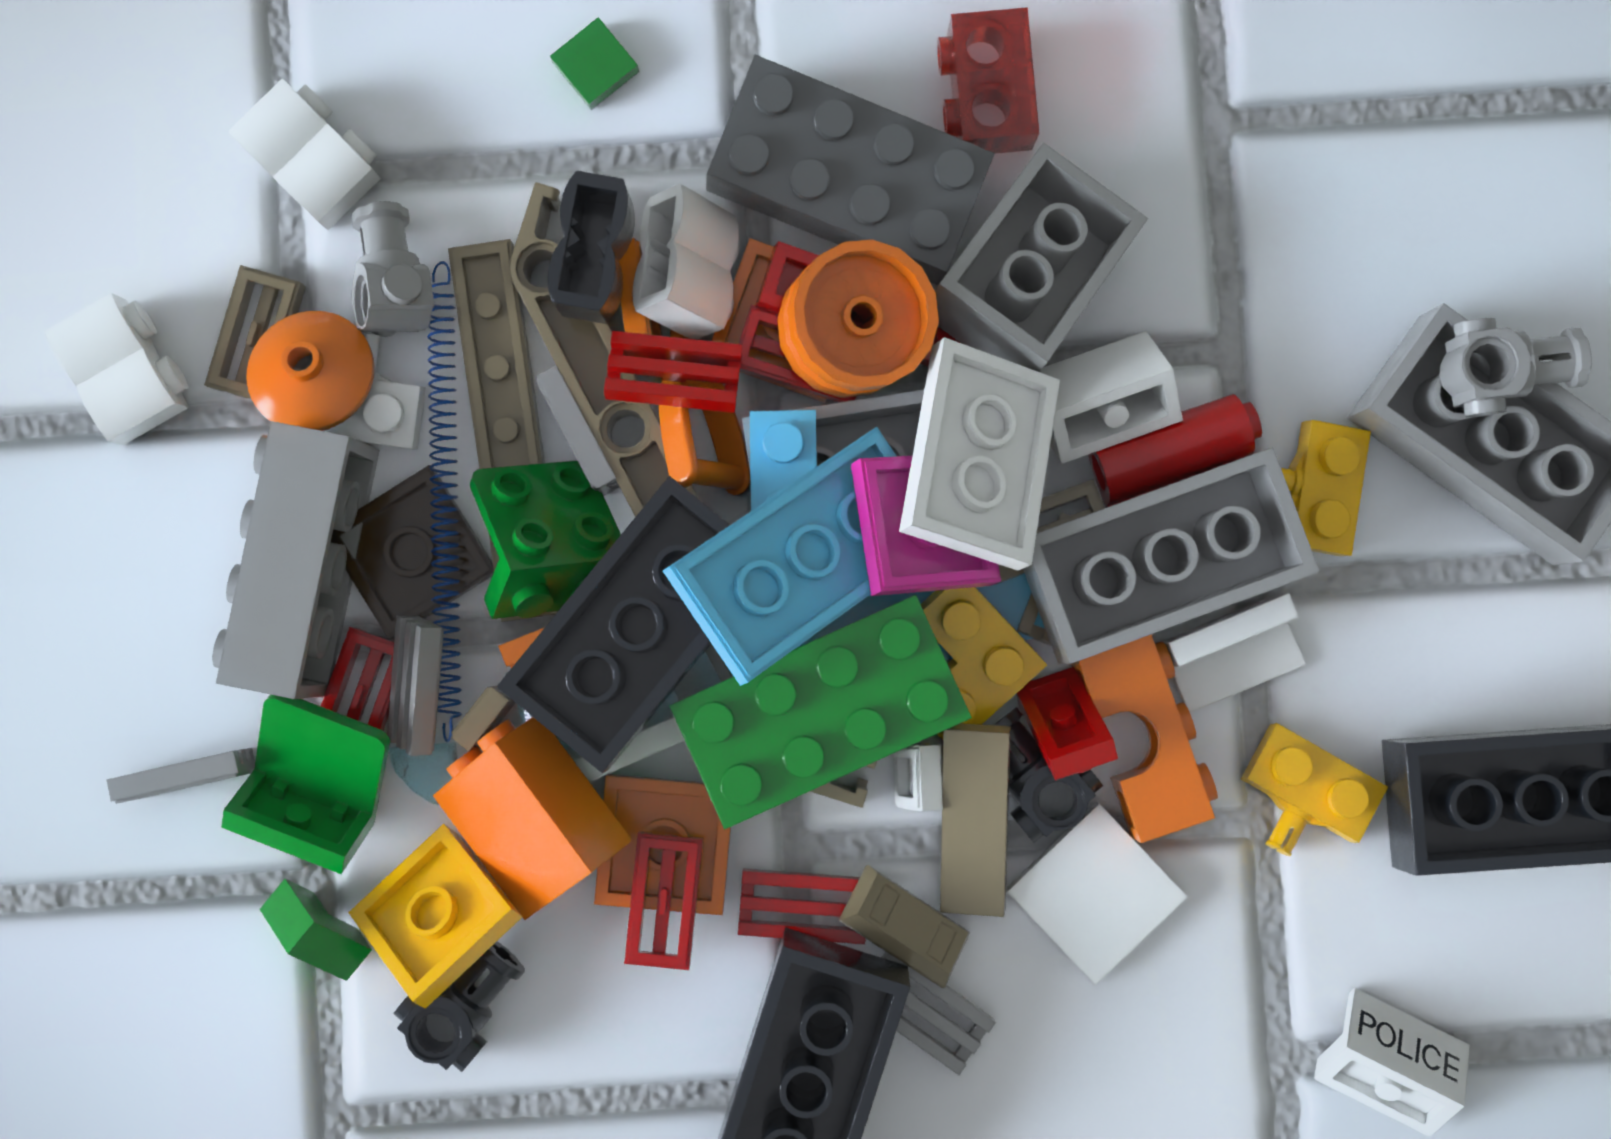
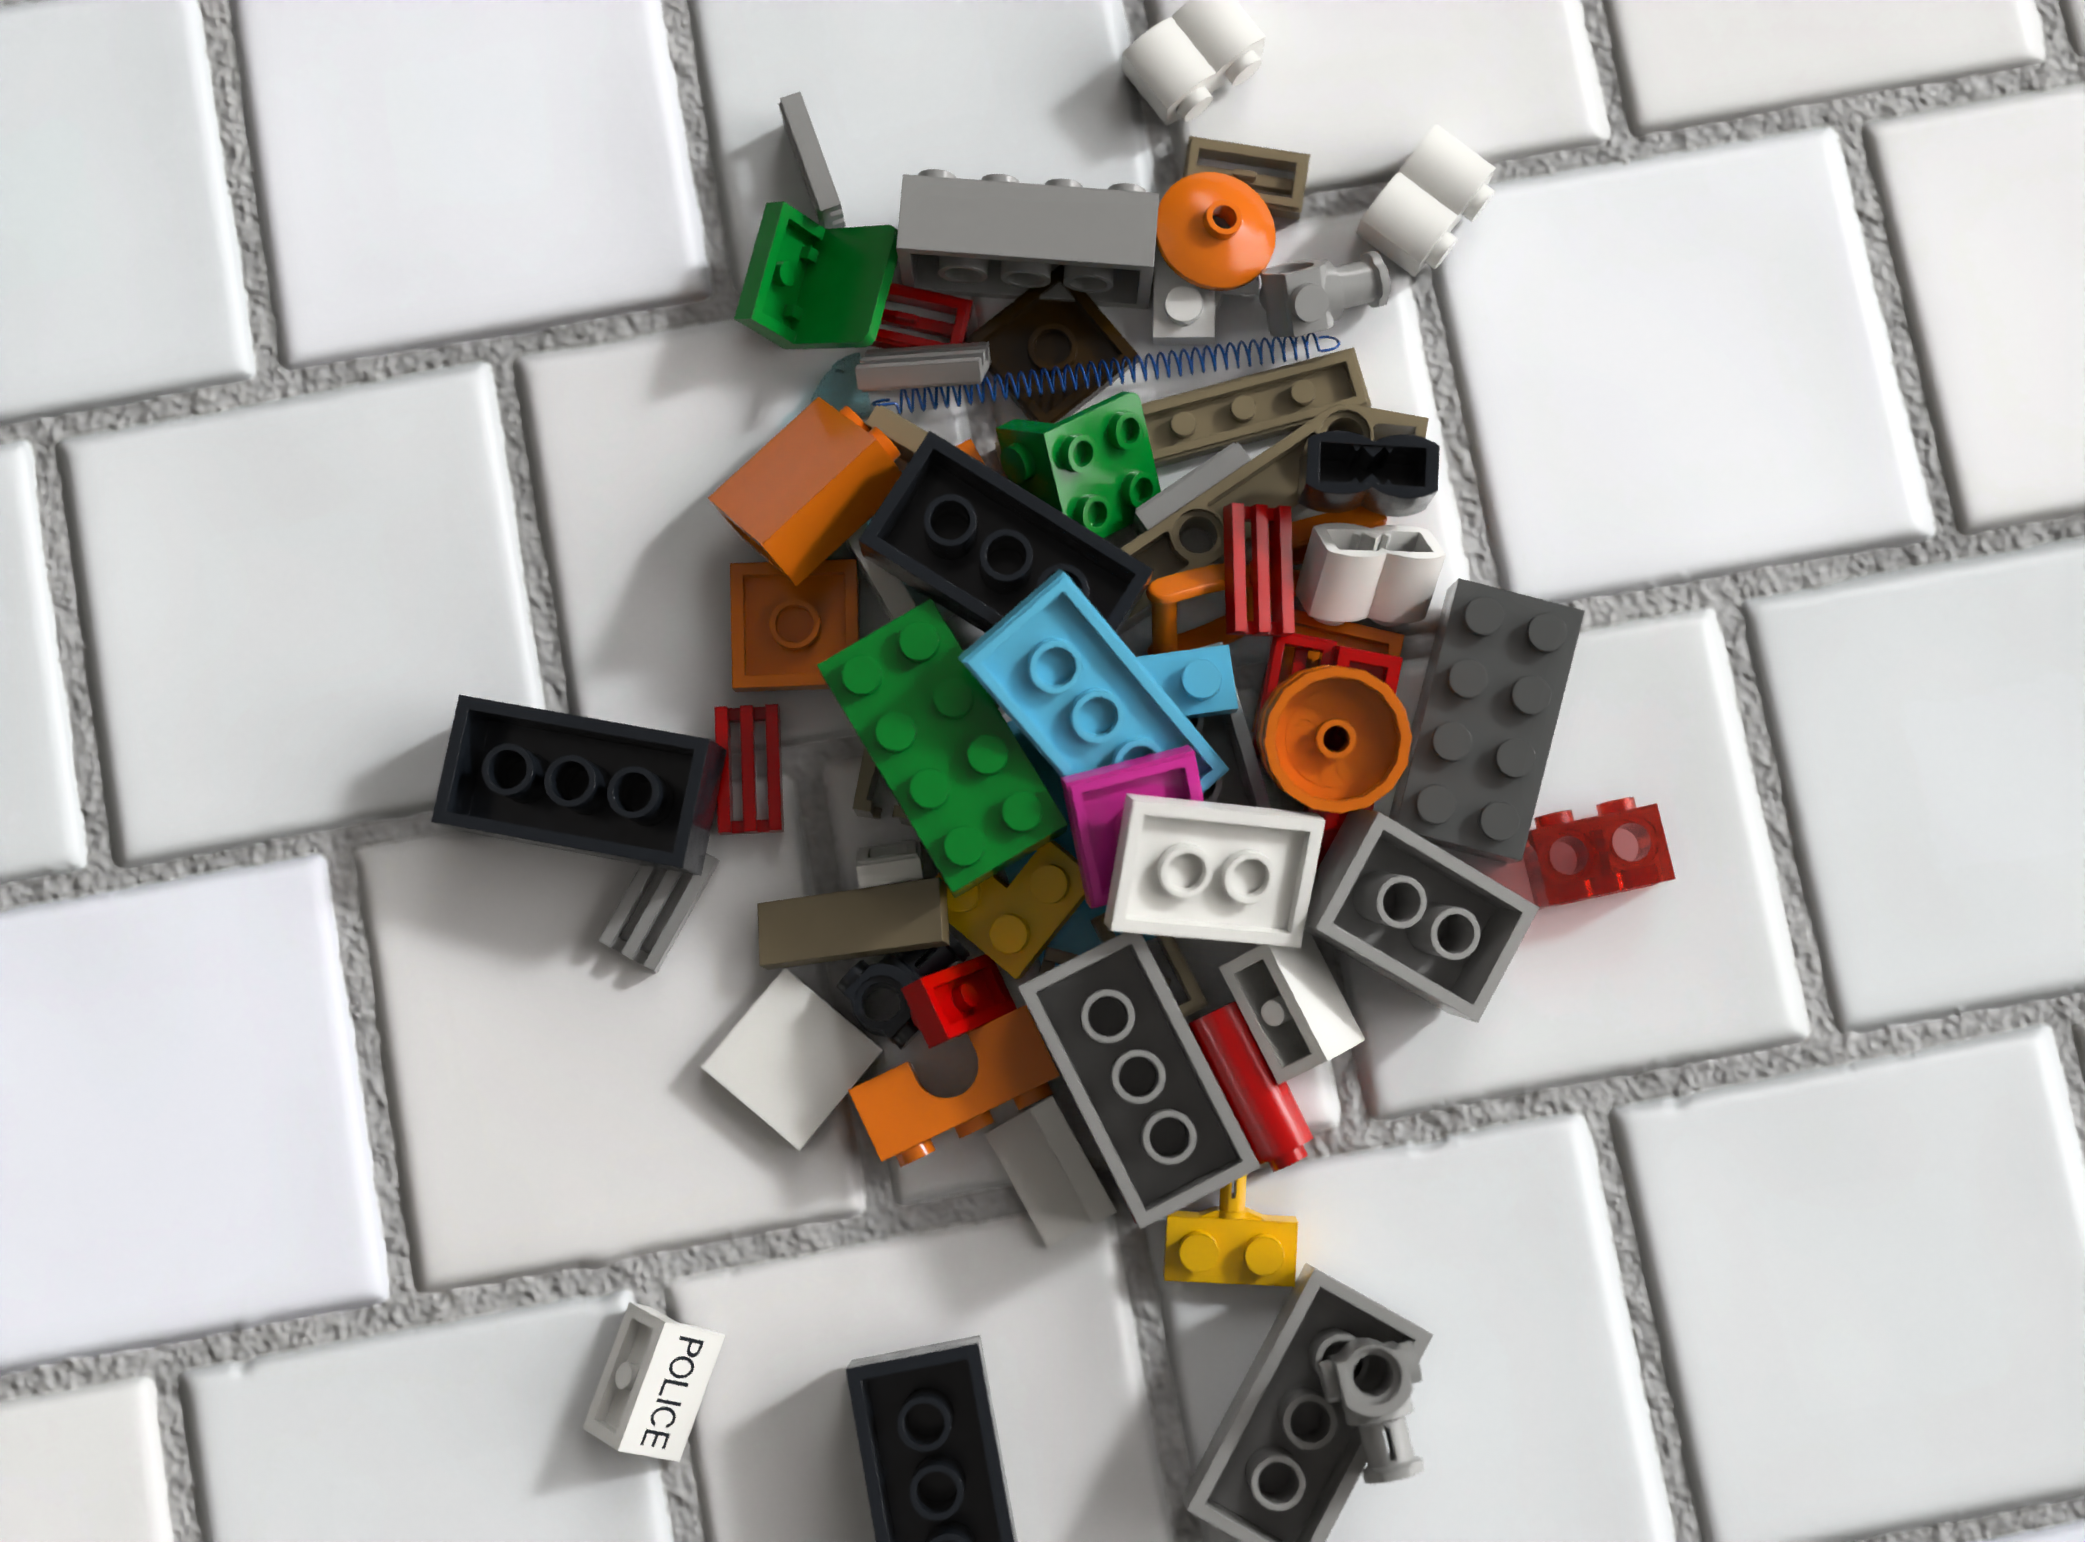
camera: 80 degrees right, 5 degrees down
(312, 933) = (673, 301): green piece -> none
(434, 916) = (703, 412): yellow plate -> none
(465, 1008) = (621, 450): black connector -> none
(594, 63) = (1557, 465): green tile -> none
(670, 844) = (740, 653): red tile -> none
(904, 926) = (739, 869): dark tan tile -> none
(1311, 789) = (922, 1267): yellow plate -> none

